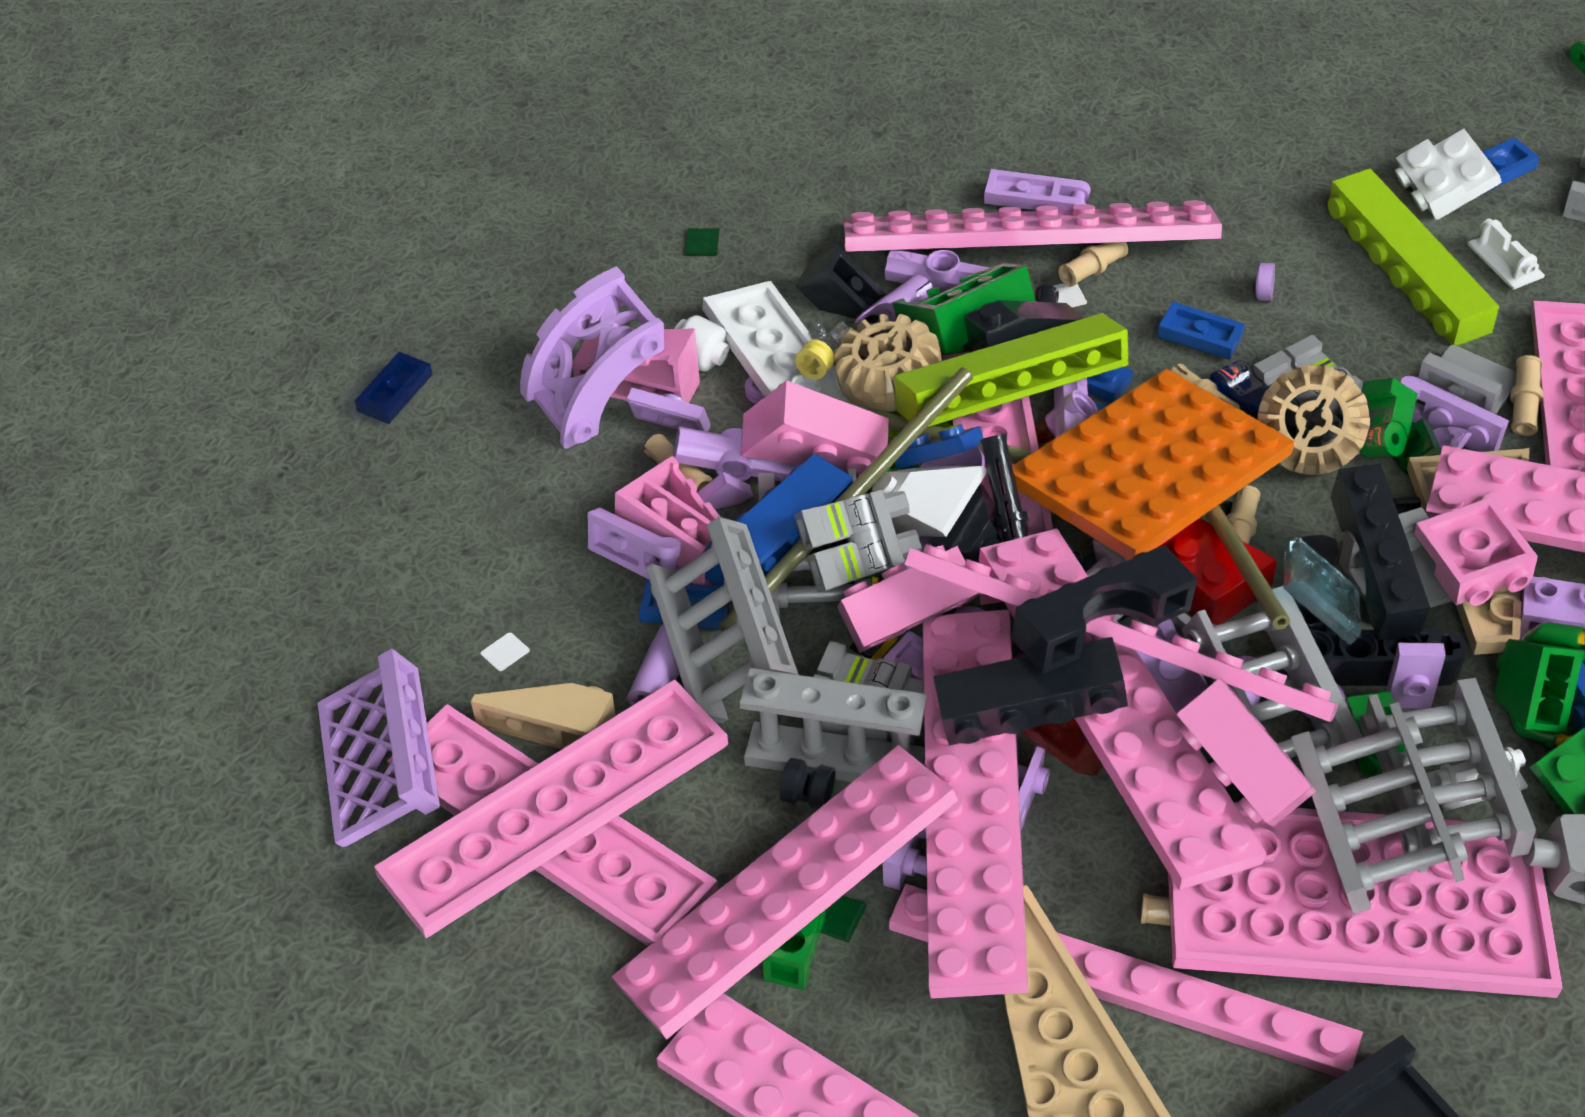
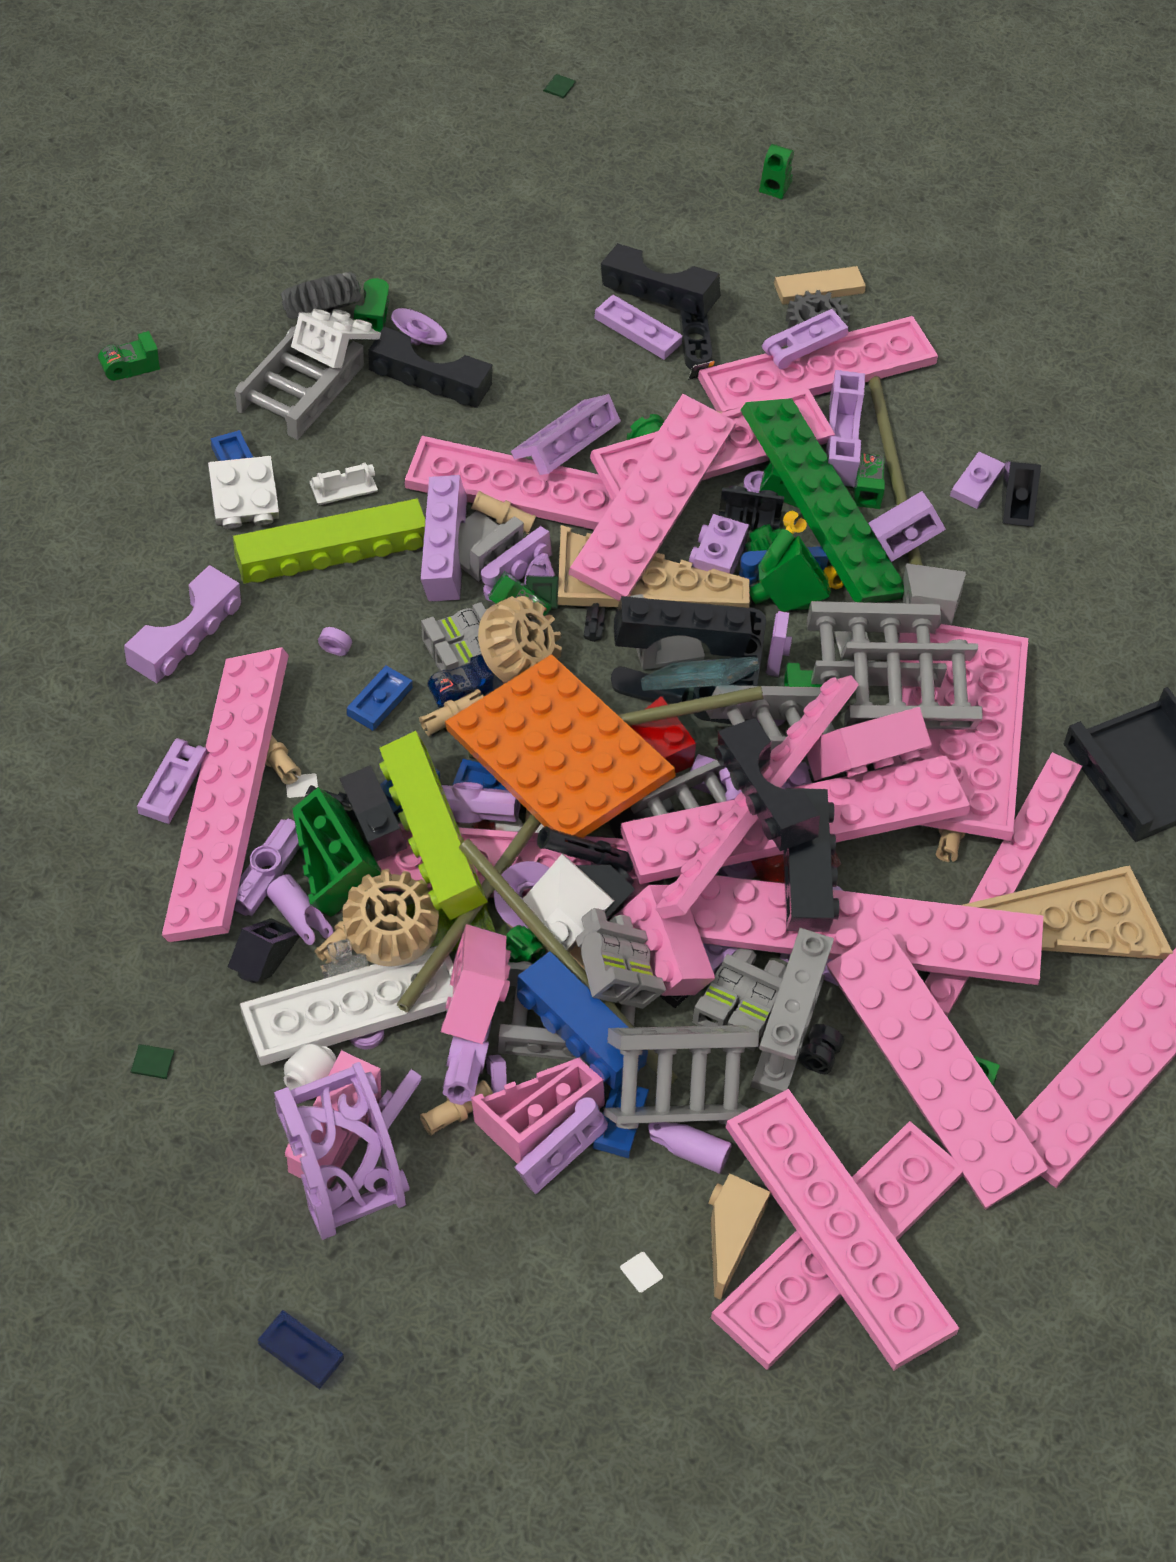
camera: 90 degrees left, 5 degrees up
(404, 735) = (755, 1338): lavender fence -> none
(818, 351) = (372, 973): light yellow bush -> none
(951, 442) = (521, 876): blue plate -> none
(1279, 177) = (160, 649): none -> lavender arch
(1477, 552) = (681, 572): bright pink plate -> none
(1499, 329) = (440, 558): none -> lavender arch

